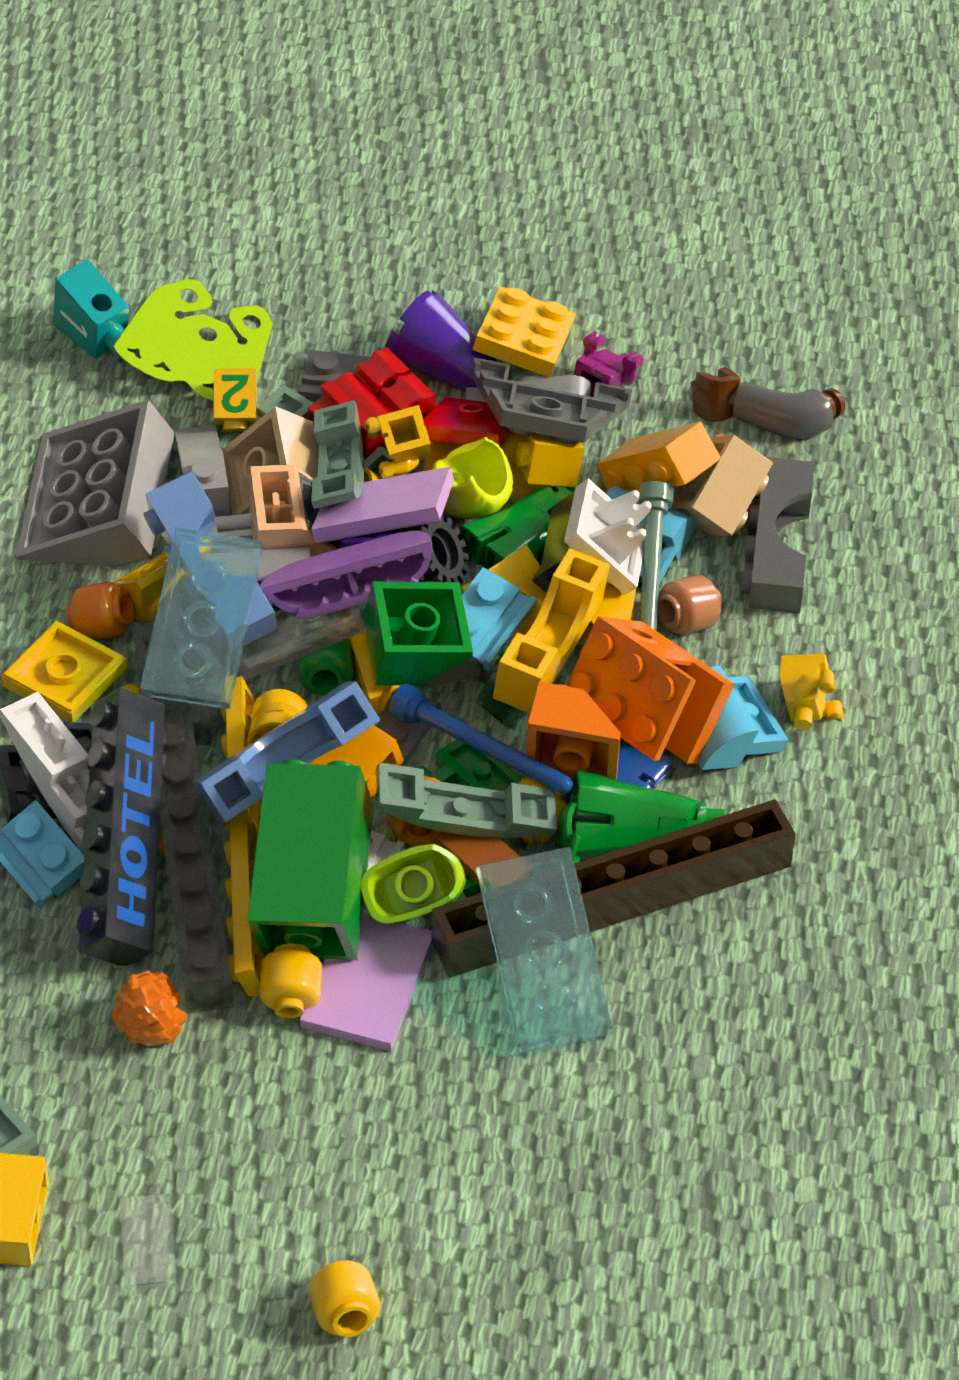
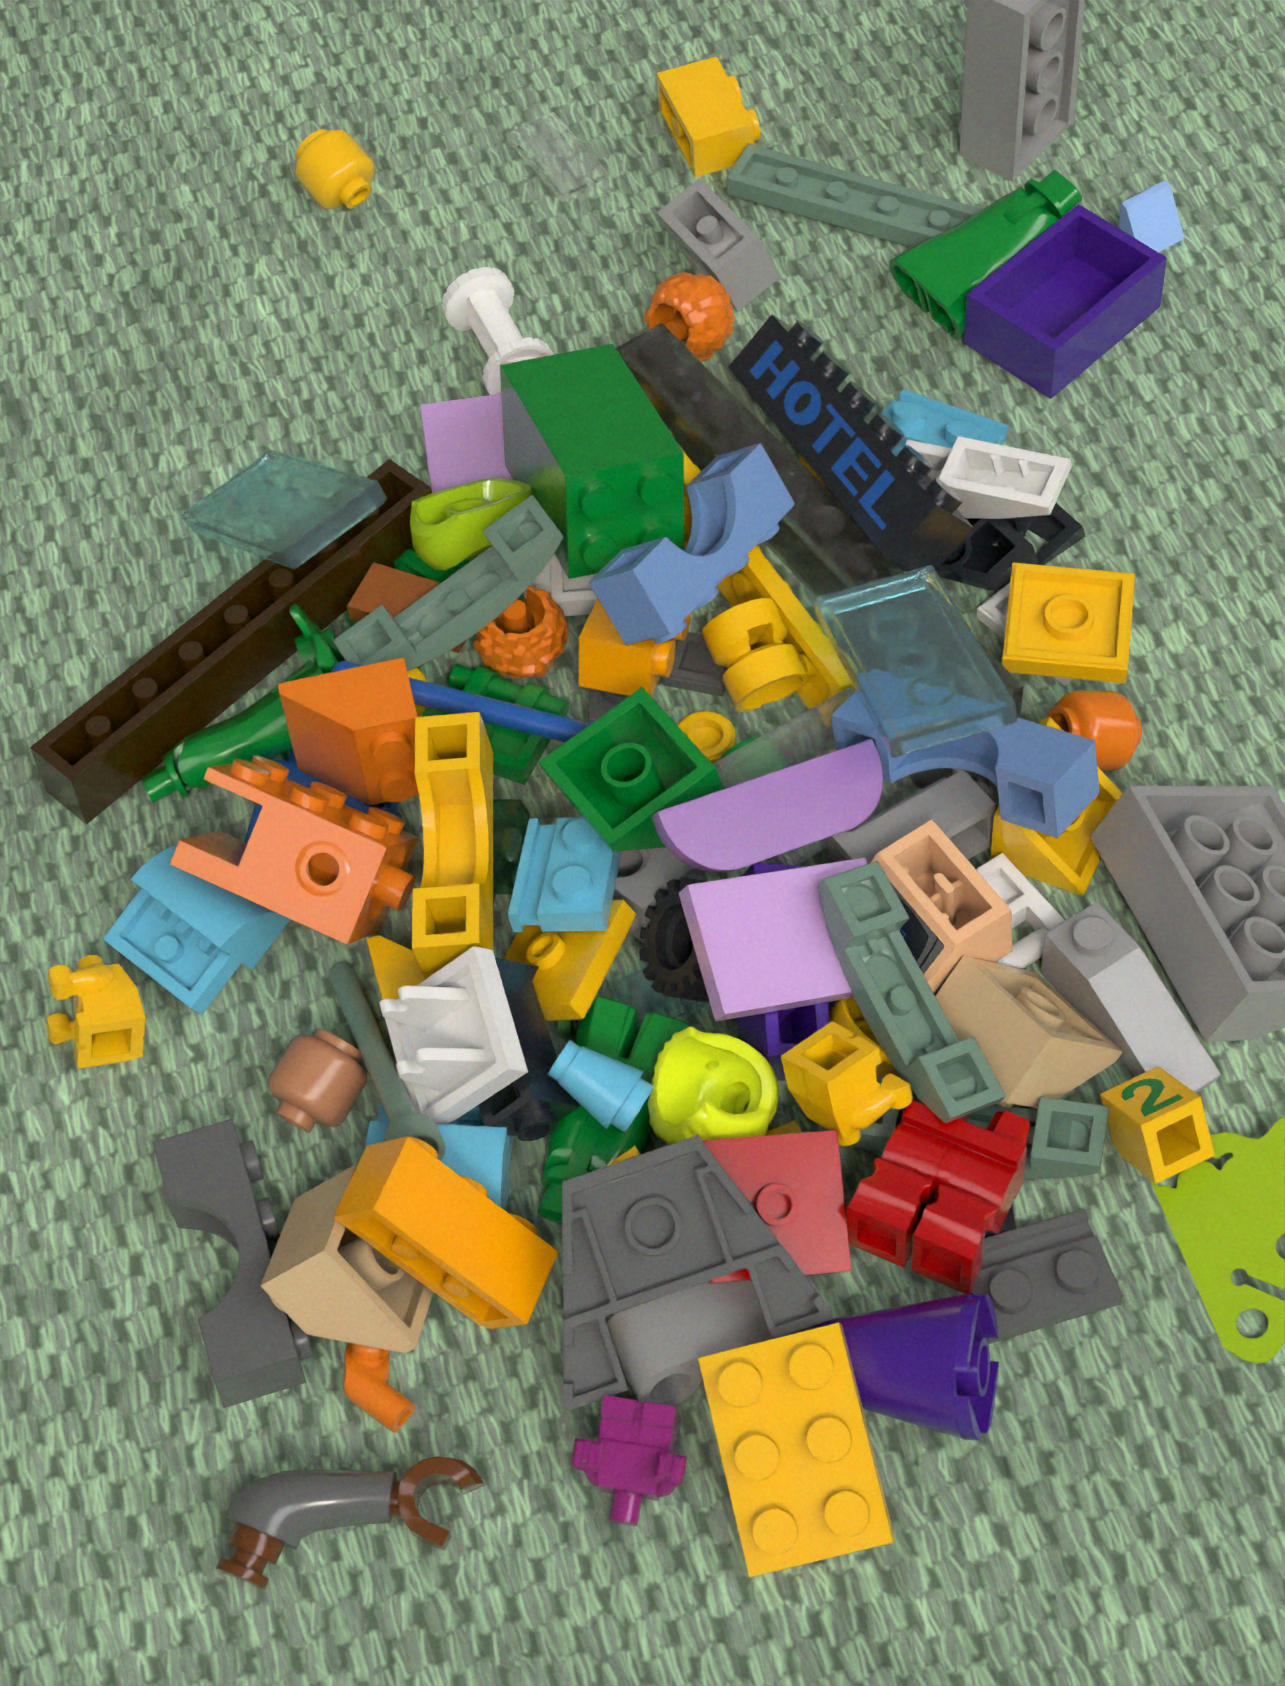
camera: 160 degrees right, 5 degrees up
(88, 1059) = (719, 243): none -> light grey brick
(303, 1030) = (482, 303): none -> white hose
(529, 495) = (601, 1085): none -> medium azure cone

